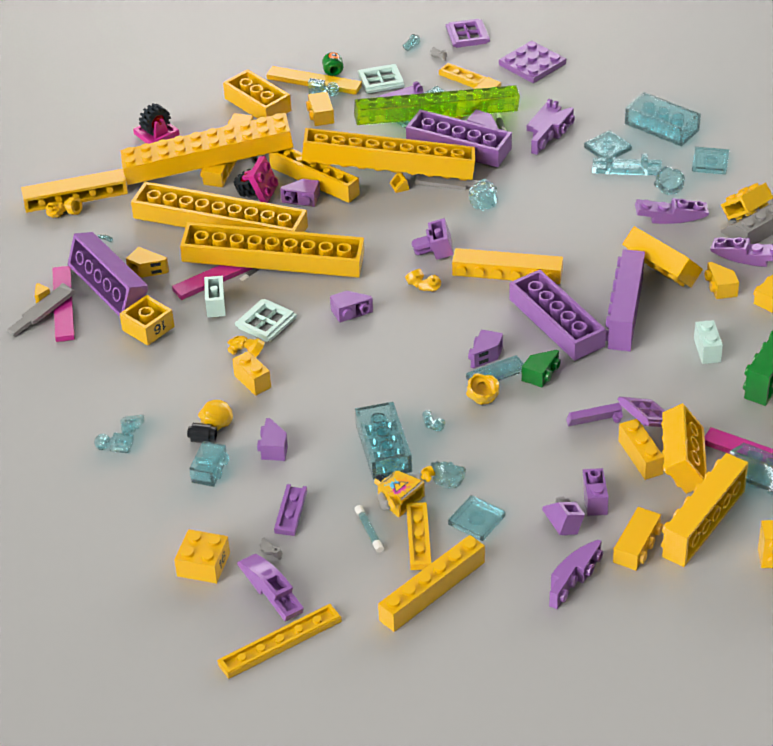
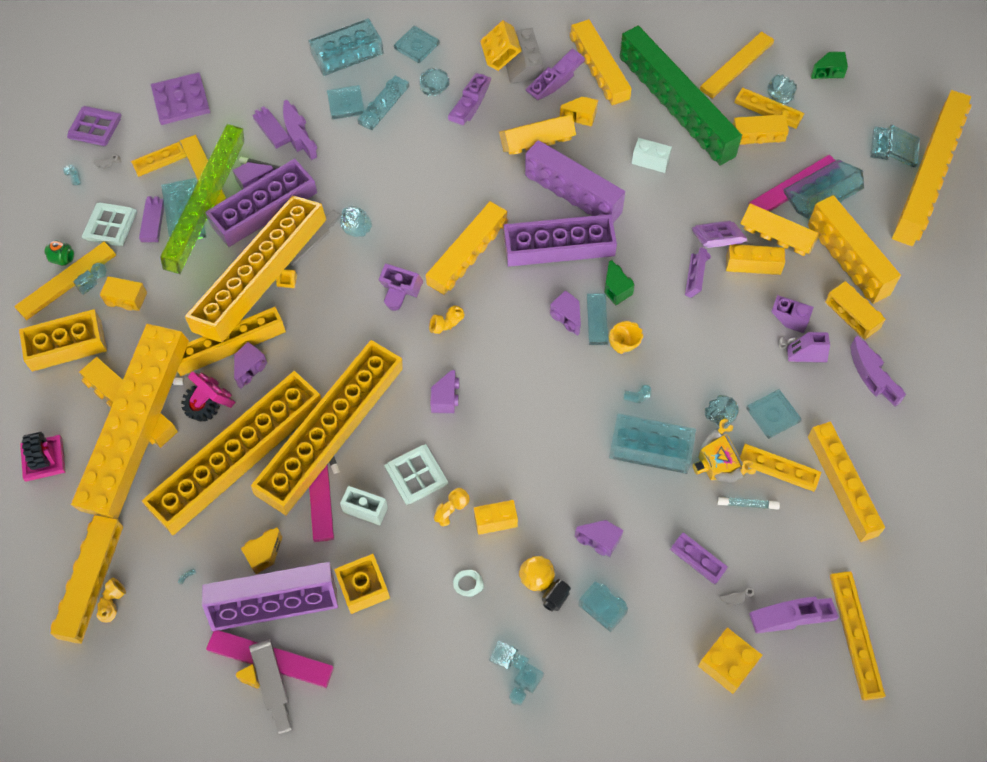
camera: 65 degrees left, 20 degrees up
(187, 386) = (479, 583): none -> light aqua piece

